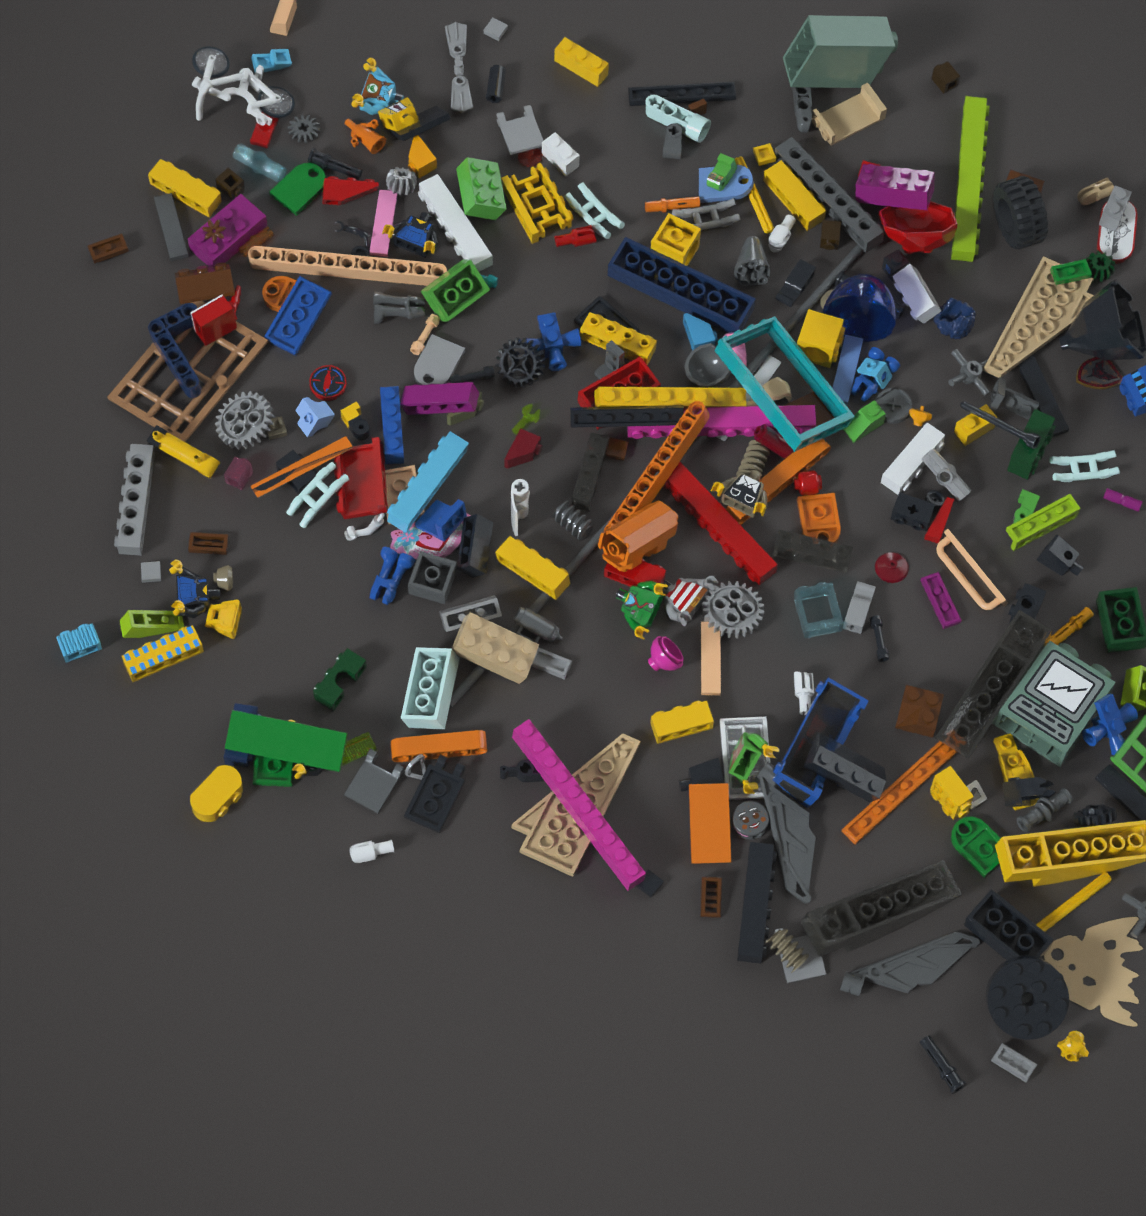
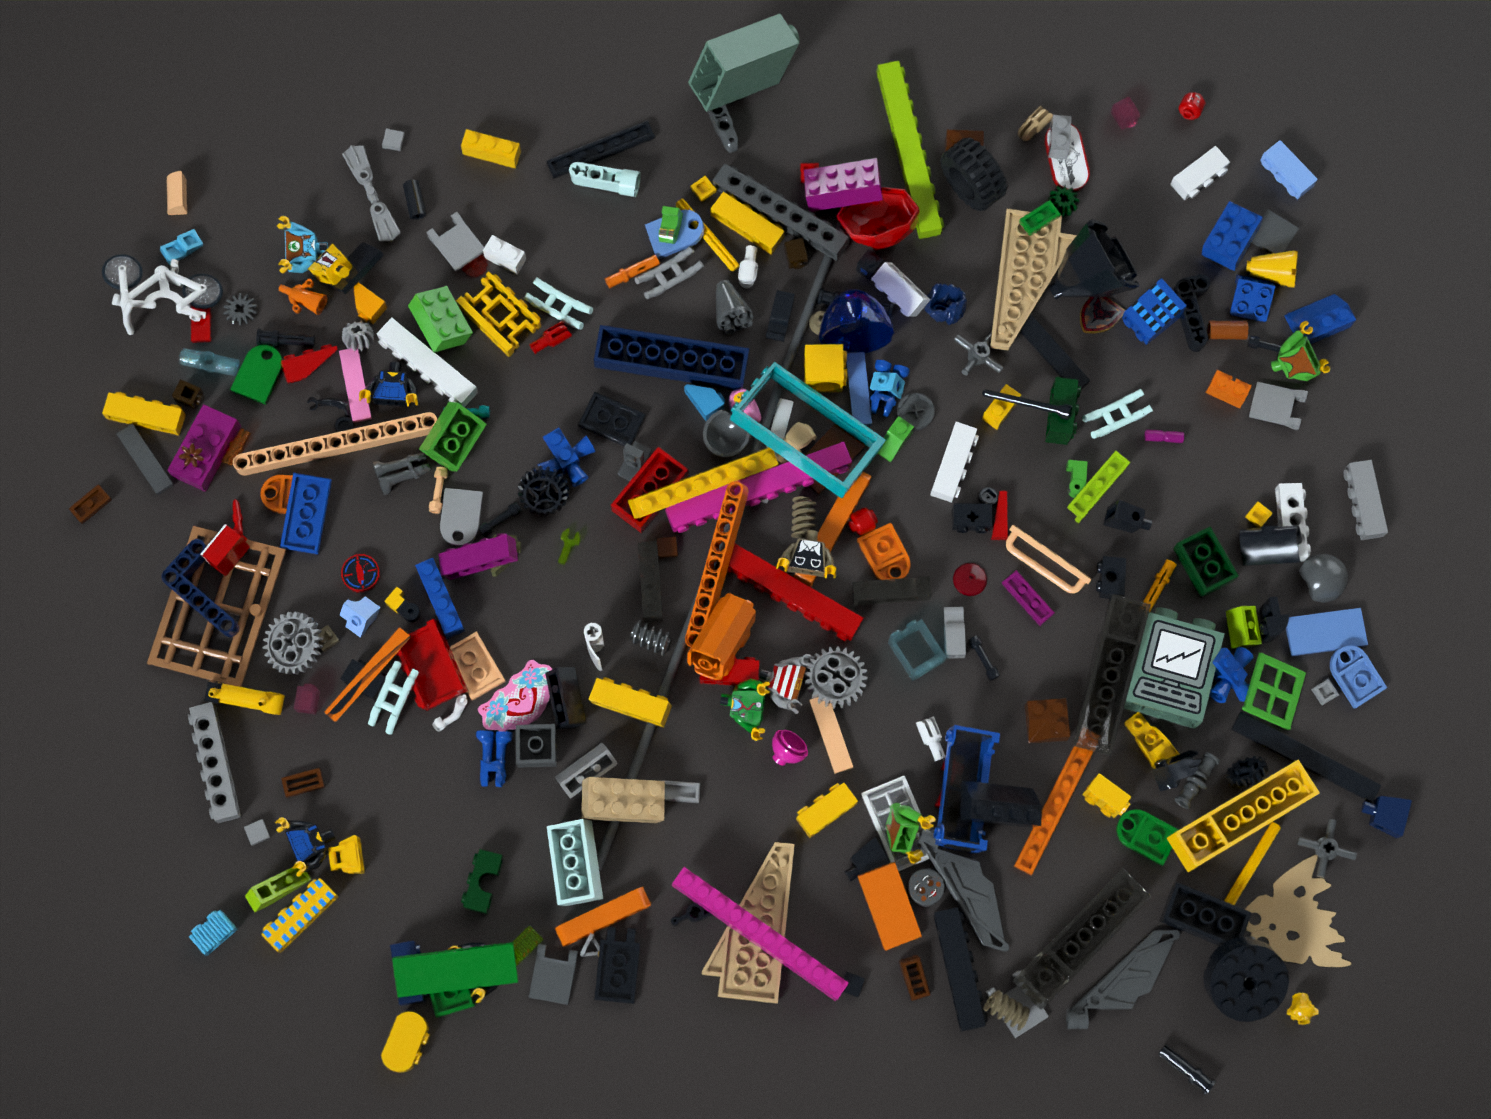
camera: 20 degrees left, 10 degrees up
(204, 283) = (201, 512): reddish brown slope -> none
(224, 578) = (332, 815): dark tan cone -> none
(368, 850) = (574, 1048): white arm -> none
(427, 482) = (496, 647): medium azure brick -> none
(441, 519) = (523, 681): blue bracket -> none
(523, 449) = (577, 579): dark red slope -> none
(537, 625) = (653, 759): dark grey piece -> none
(601, 331) = (635, 433): yellow brick -> none
(625, 416) = (668, 517): black tile -> none
(672, 144) = (610, 207): dark grey piece -> none
(677, 239) = (651, 312): yellow brick -> none
(698, 107) = (622, 161): reddish brown tile -> none
(772, 440) = (815, 491): dark red brick -> none
(850, 116) = (771, 120): tan panel -> none
(919, 416) = (945, 415): light orange piece -> none
(945, 77) = (850, 49): dark brown brick -> none
(954, 483) = (1000, 473): light grey piece -> none
(979, 795) = (1127, 784): white slope -> none
(1011, 400) = (1026, 370): dark grey bracket -> none
(1014, 1062) = (1252, 1043): light grey plate -> none

